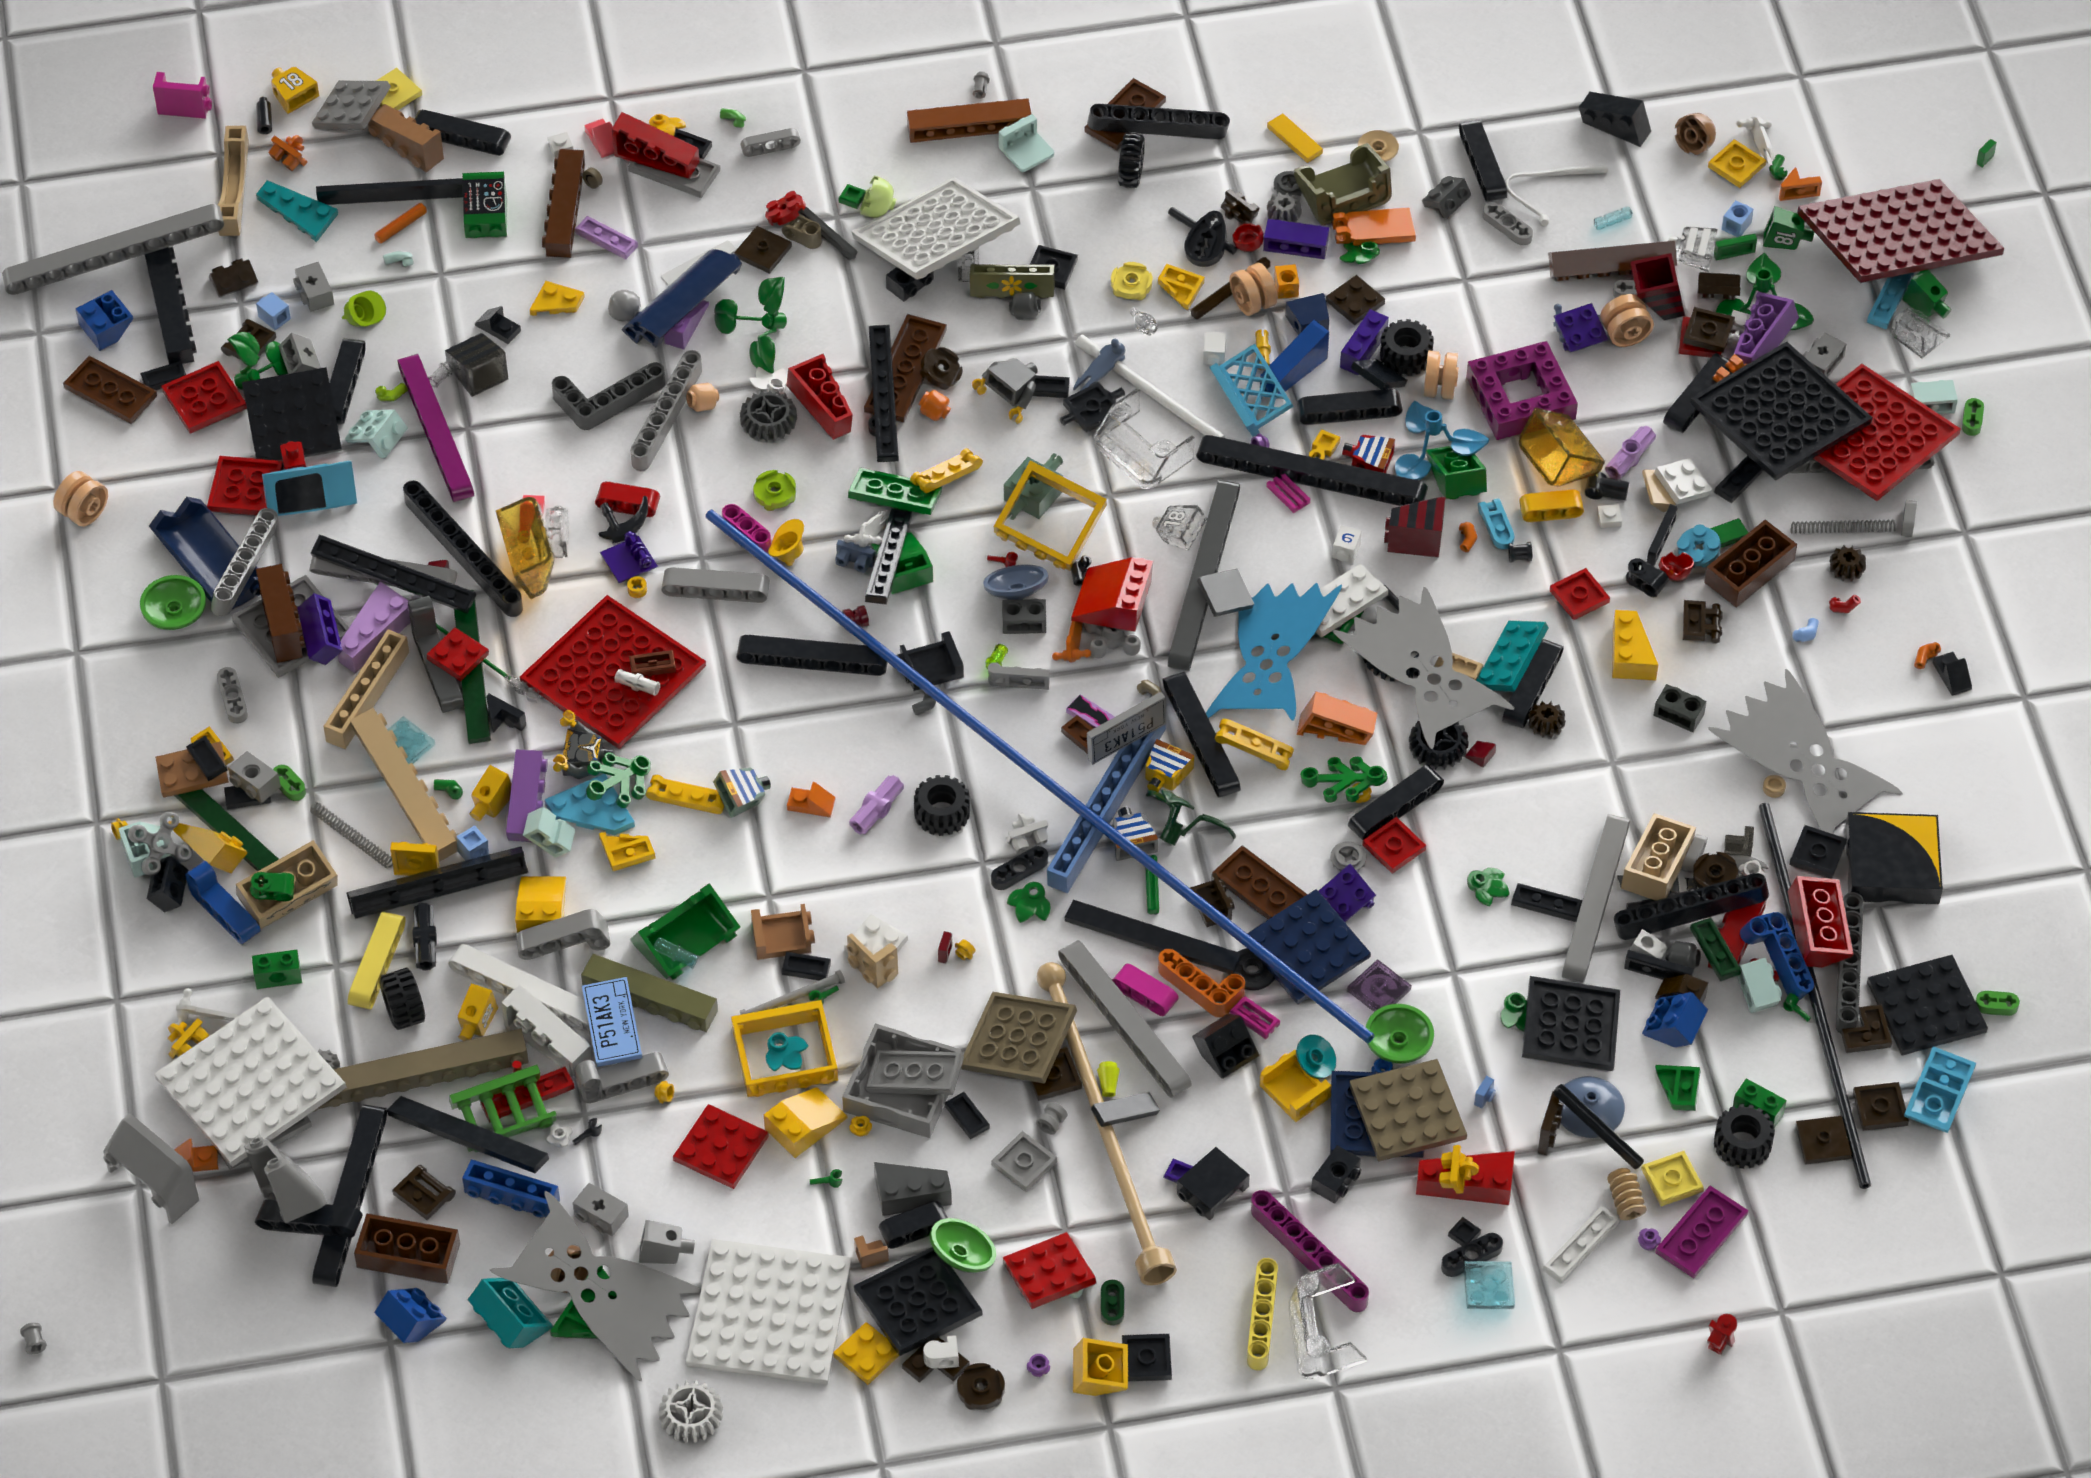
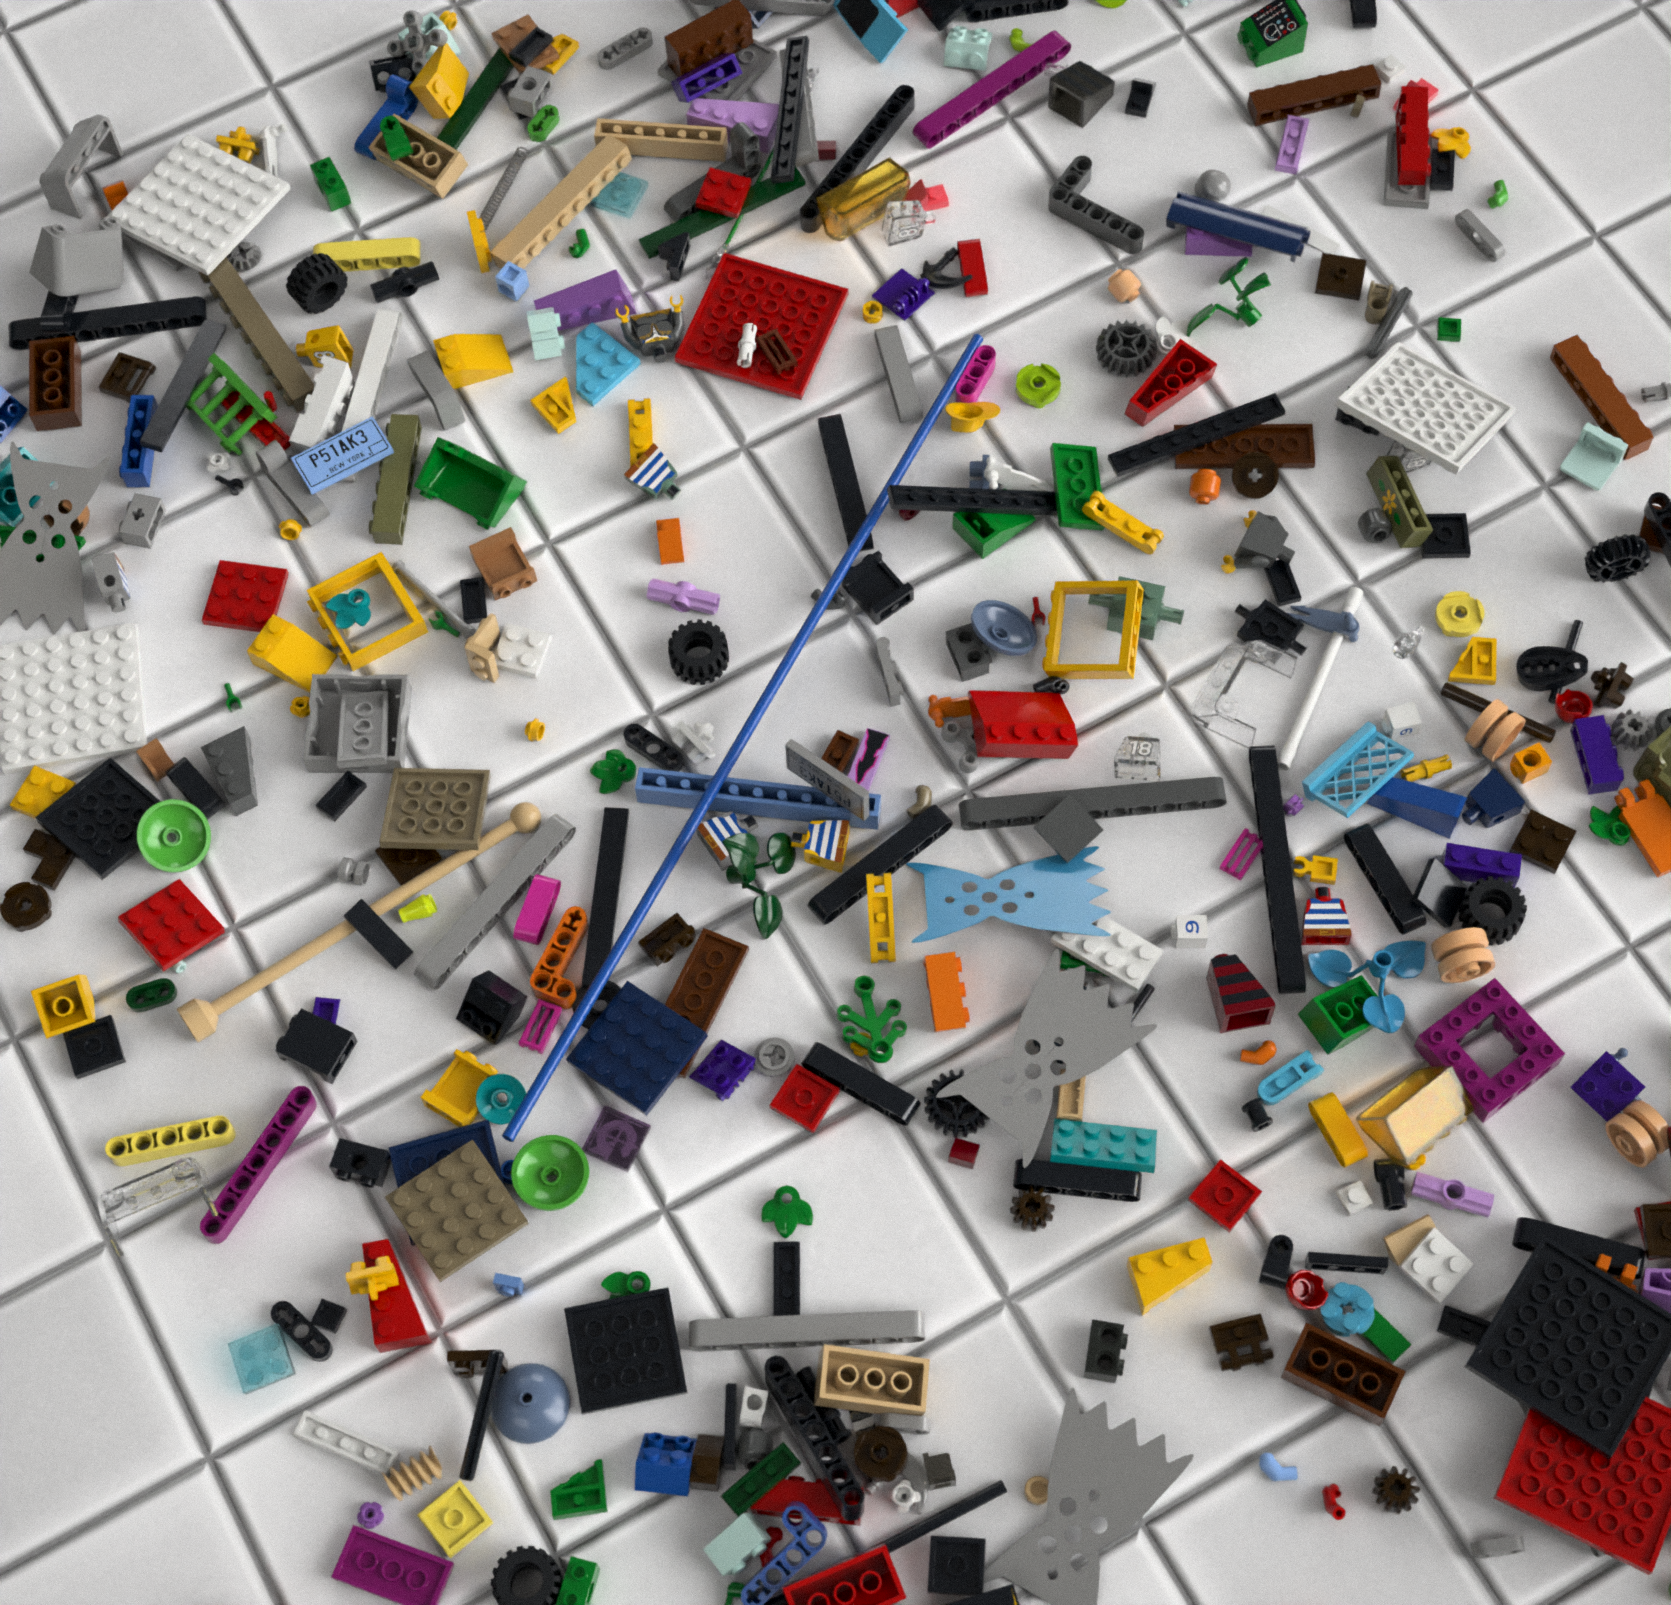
camera: 75 degrees right, 10 degrees up
(437, 882) = (465, 271): black tile -> none
(491, 793) = (573, 270): yellow torso -> none
(557, 299) = (1194, 130): yellow wing -> none
(636, 766) = (632, 370): green plant -> none
(665, 410) = (1094, 261): light grey beam -> none
(676, 952) = (447, 484): clear light blue axle -> none
(784, 209) = (1395, 273): red plate -> none
(878, 198) = (1449, 348): yellowish green cylinder -> none
(941, 1354) = (42, 856): white leg -> none
(945, 947) = (529, 710): dark red tile -> none
(997, 655) = (906, 645): clear neon green pin -> none
(1024, 1161) = (297, 862): light grey plate -> none
(1038, 1359) = (59, 946): medium lavender plate -> none
(1152, 891) = (680, 875): green axle -> none
(1843, 525) = (1451, 1474): light grey piece -> none

